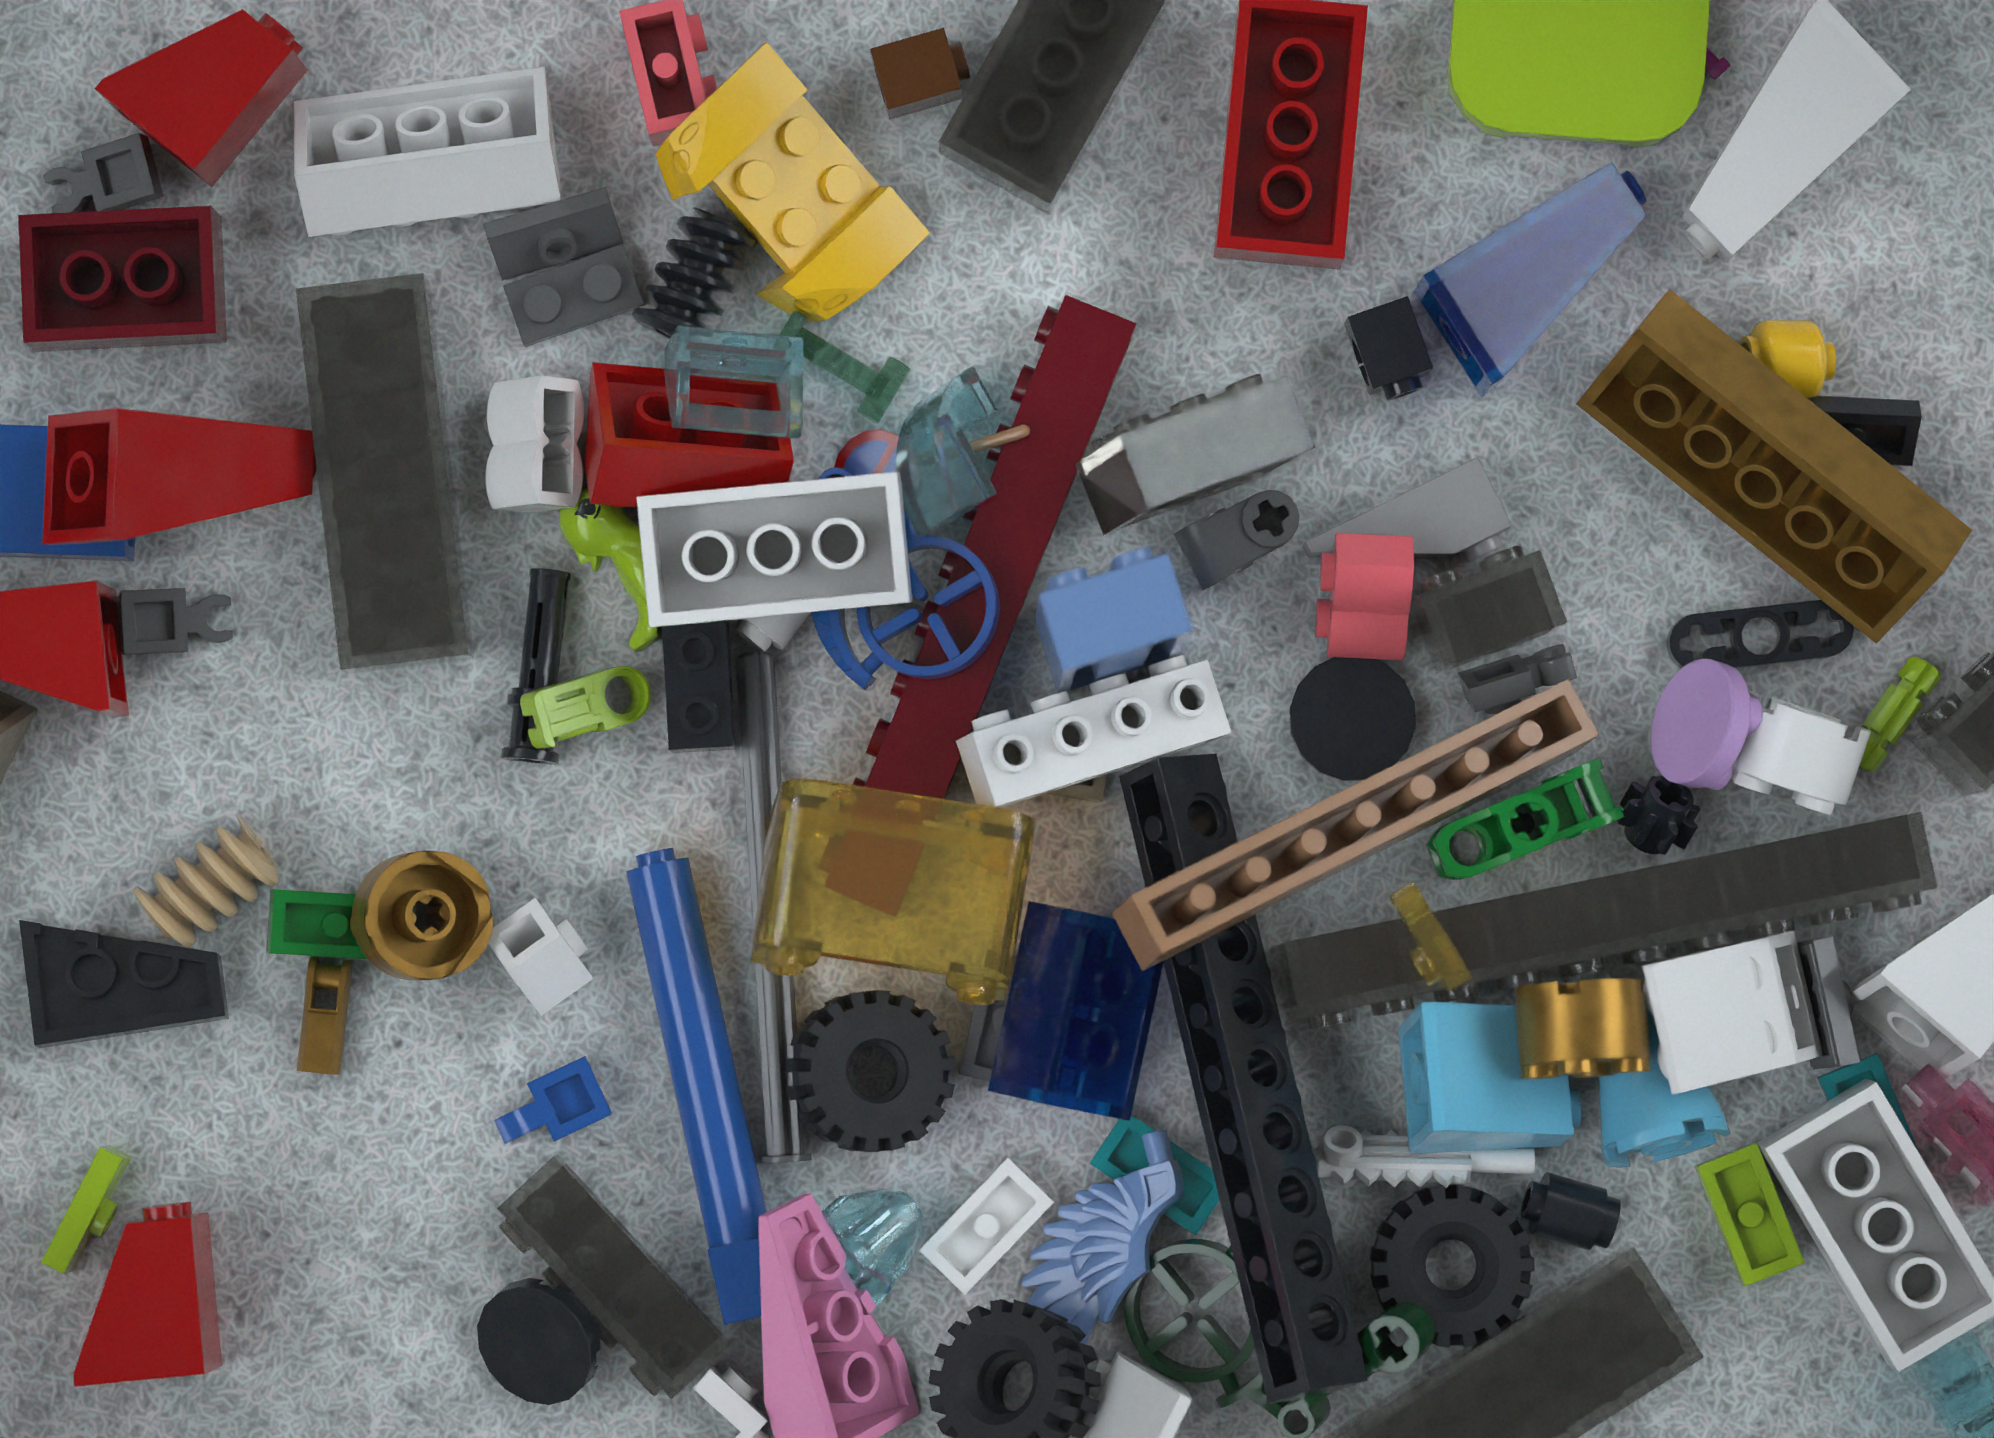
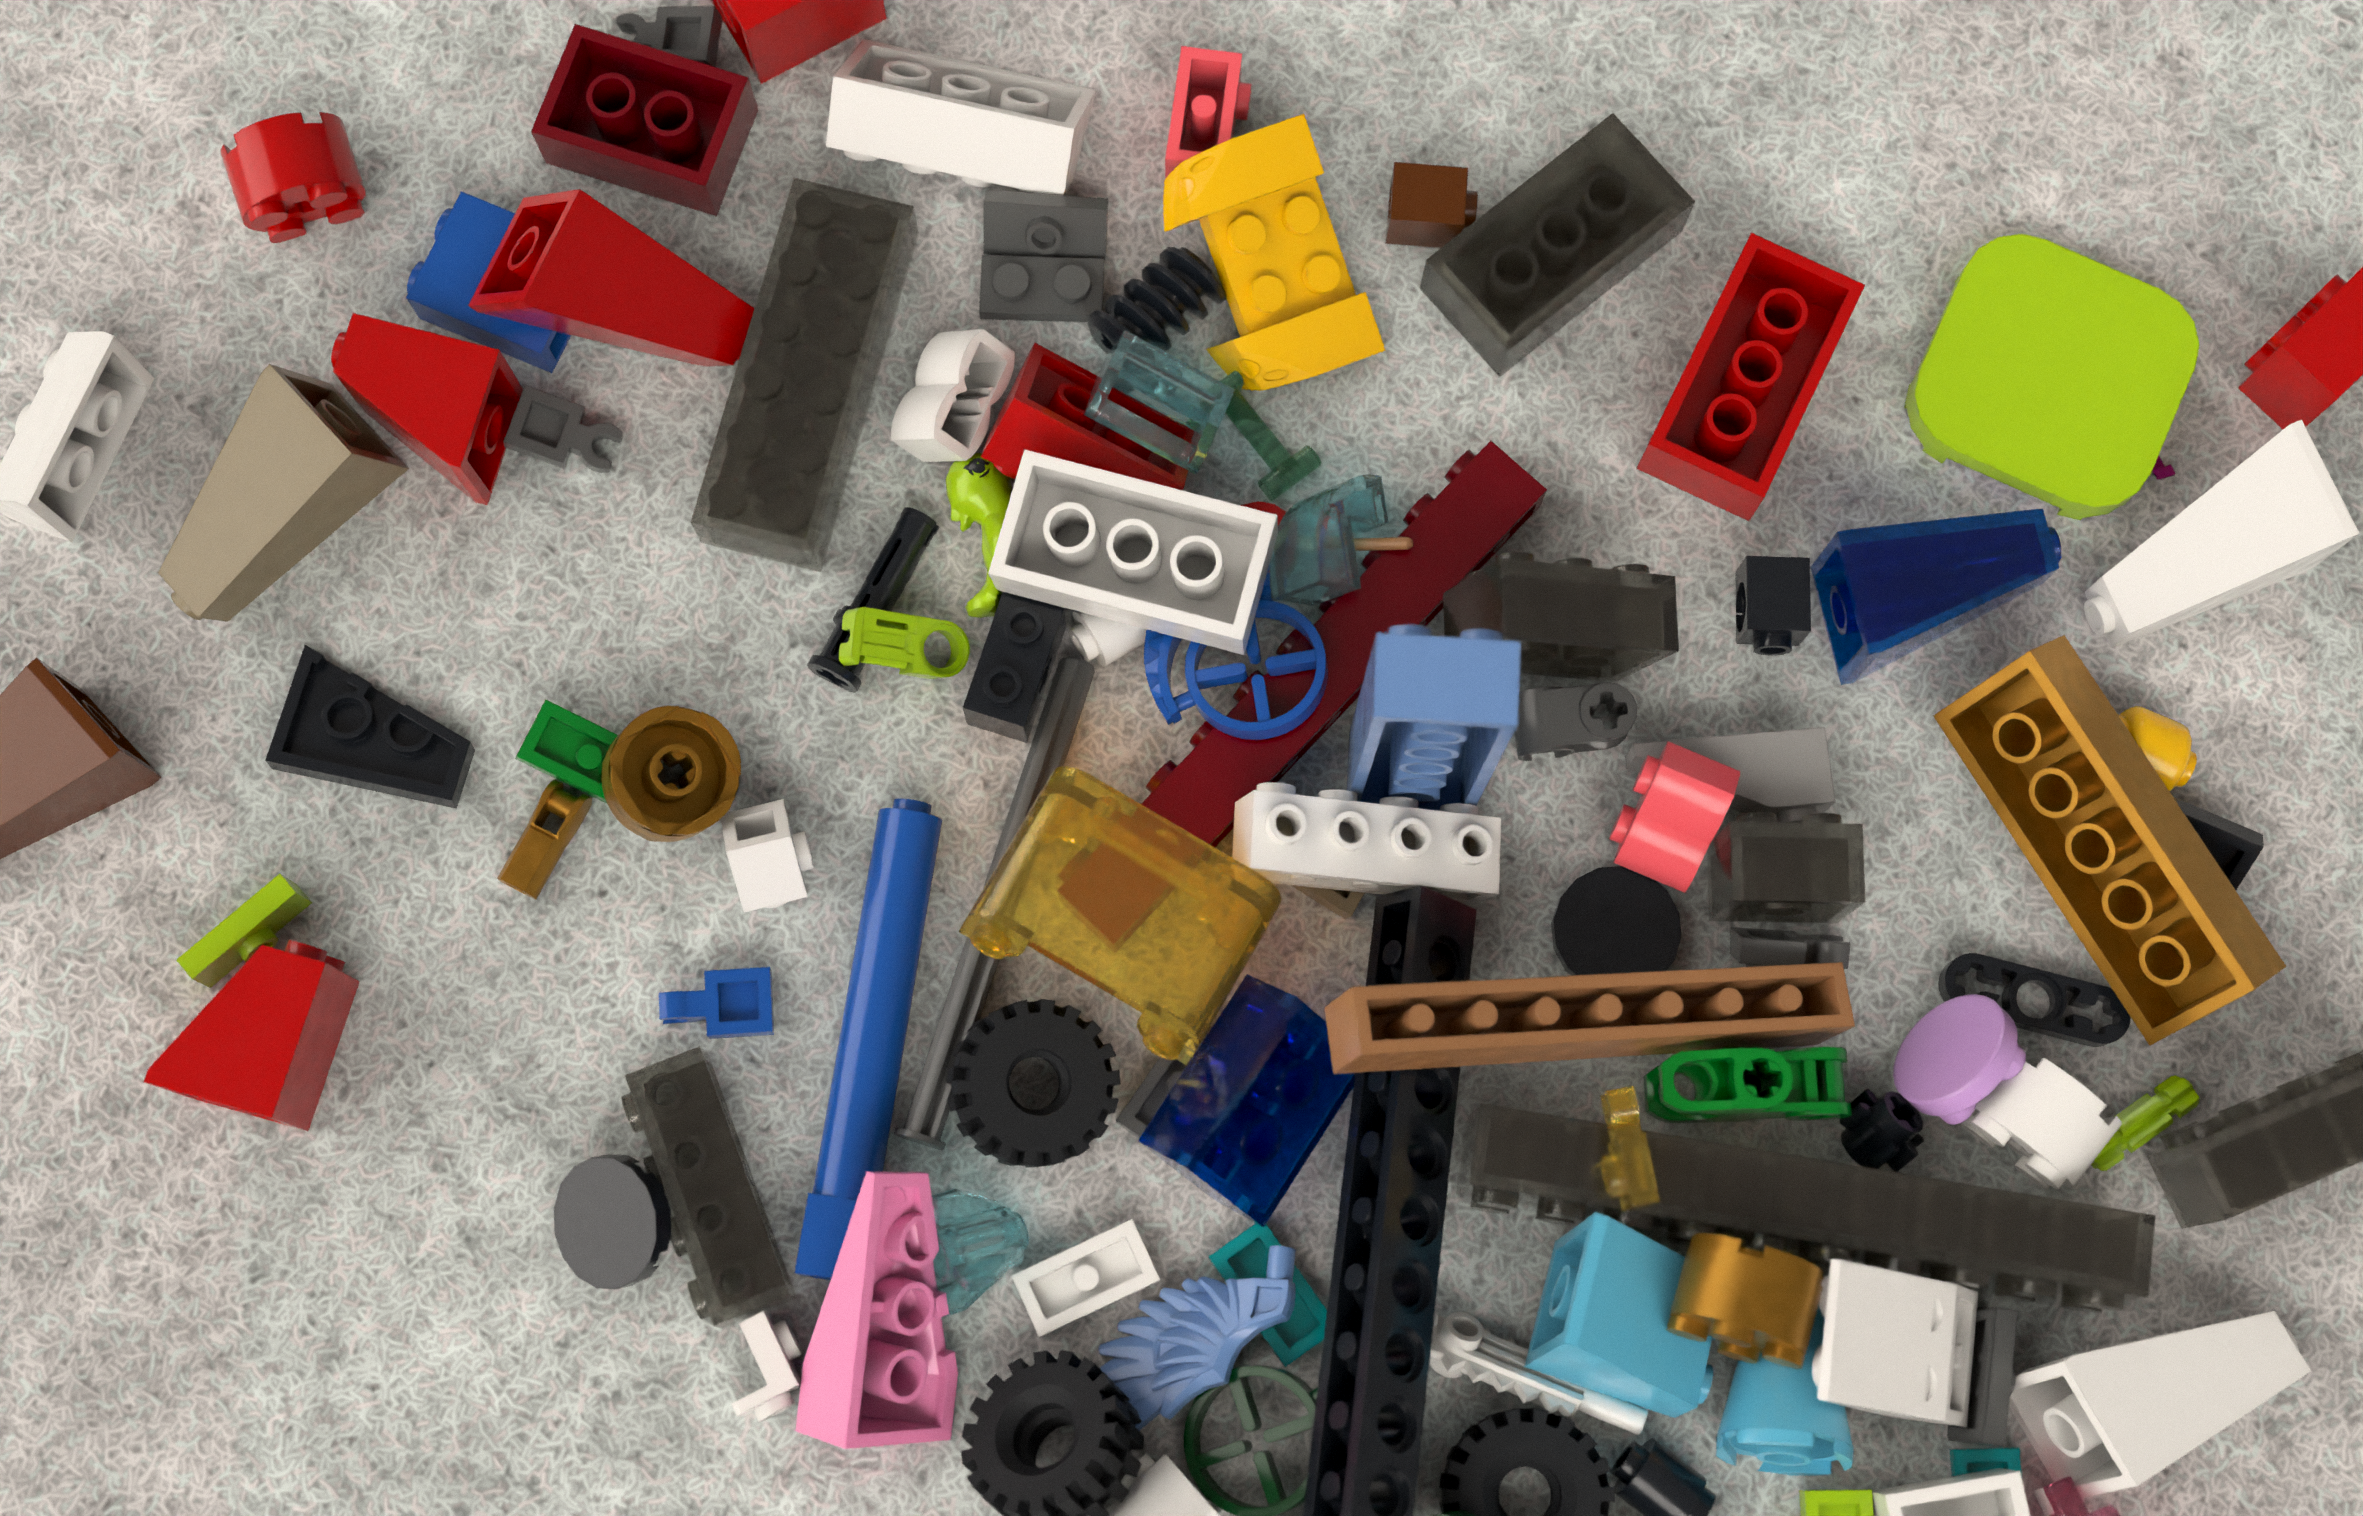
camera: 20 degrees right, 10 degrees down
(209, 884) = (490, 676): tan piece -> none

